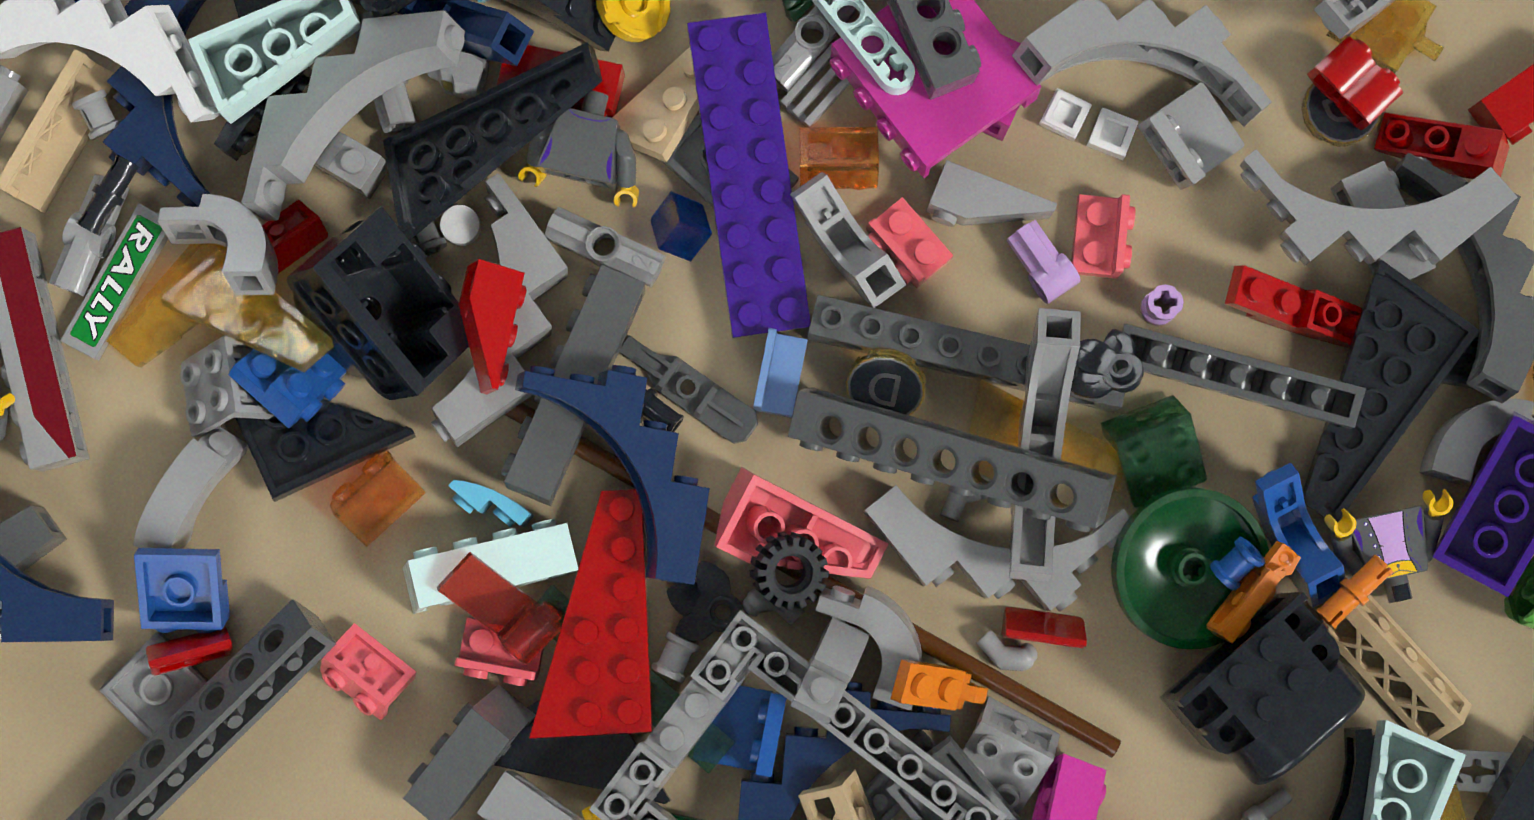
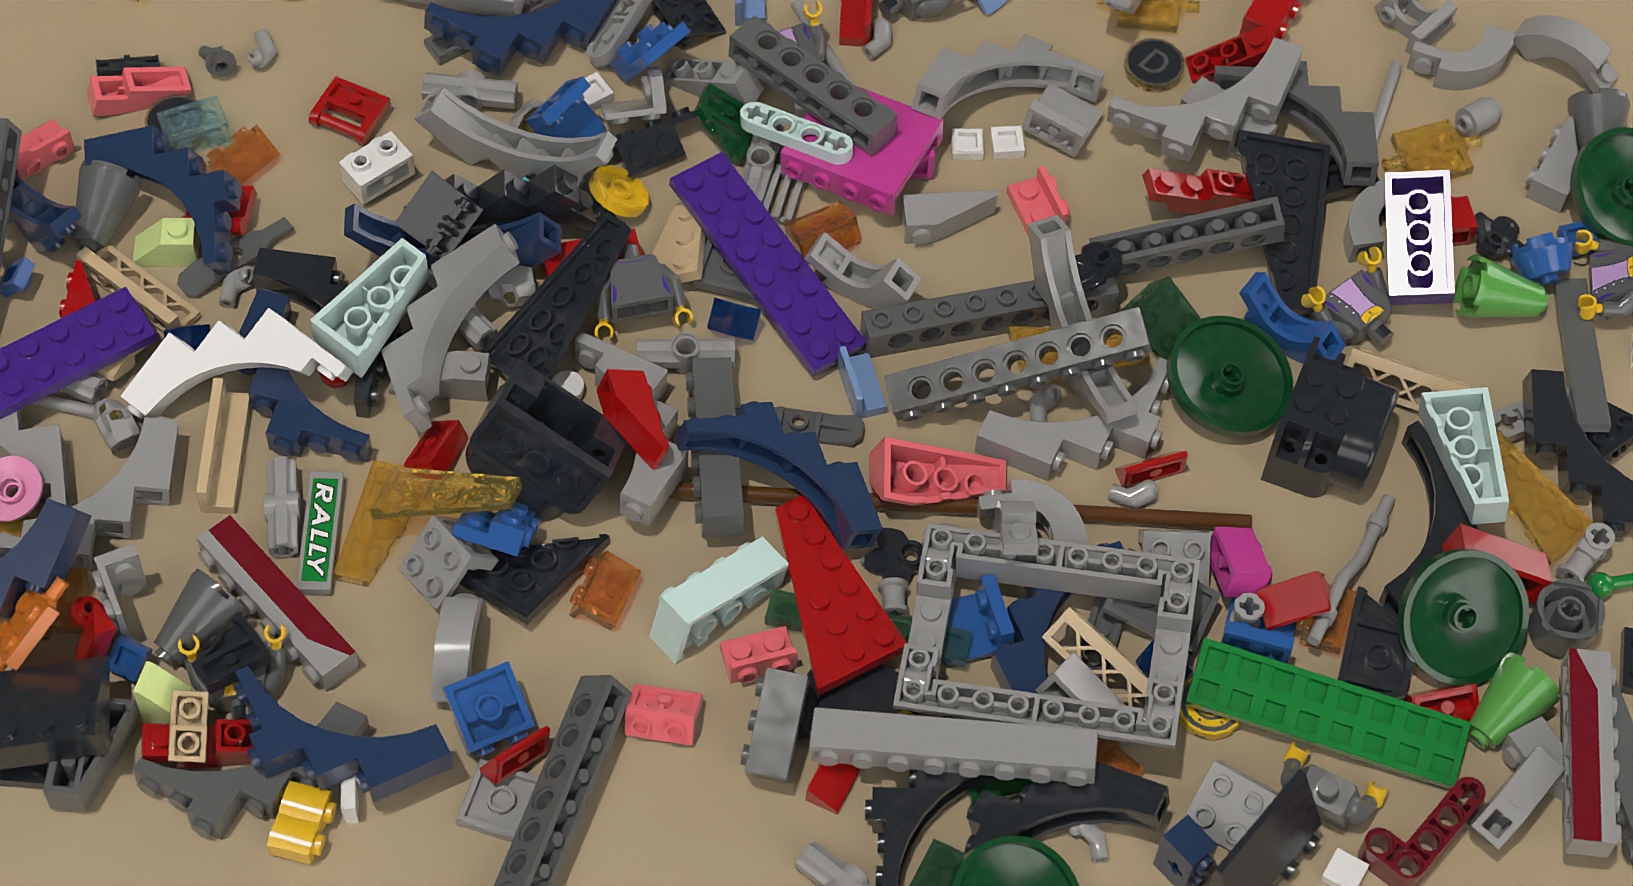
camera: 30 degrees left, 25 degrees down
(96, 114) = (249, 419): light grey bush -> none
(108, 195) = (290, 461): black pin -> none
(250, 257) = (396, 445): light grey arch -> none
(474, 496) = (683, 553): medium azure slope -> none
(501, 606) = (763, 614): clear red door -> none
(808, 583) = (957, 482): black tyre -> none
(887, 381) = (941, 341): black tile -> none
(908, 243) = (922, 263): coral bracket -> none
(935, 686) = (1097, 522): orange hinge -> none
(1048, 271) = (1005, 235): lavender piece -> none
(1154, 314) = (1106, 222): lavender bush -> none
(1237, 563) = (1260, 354): blue bush -> none
(1256, 590) = (1281, 369): orange hinge -> none
(1354, 591) = (1351, 335): orange pin -> none
(1356, 82) = (1153, 40): red brick -> none

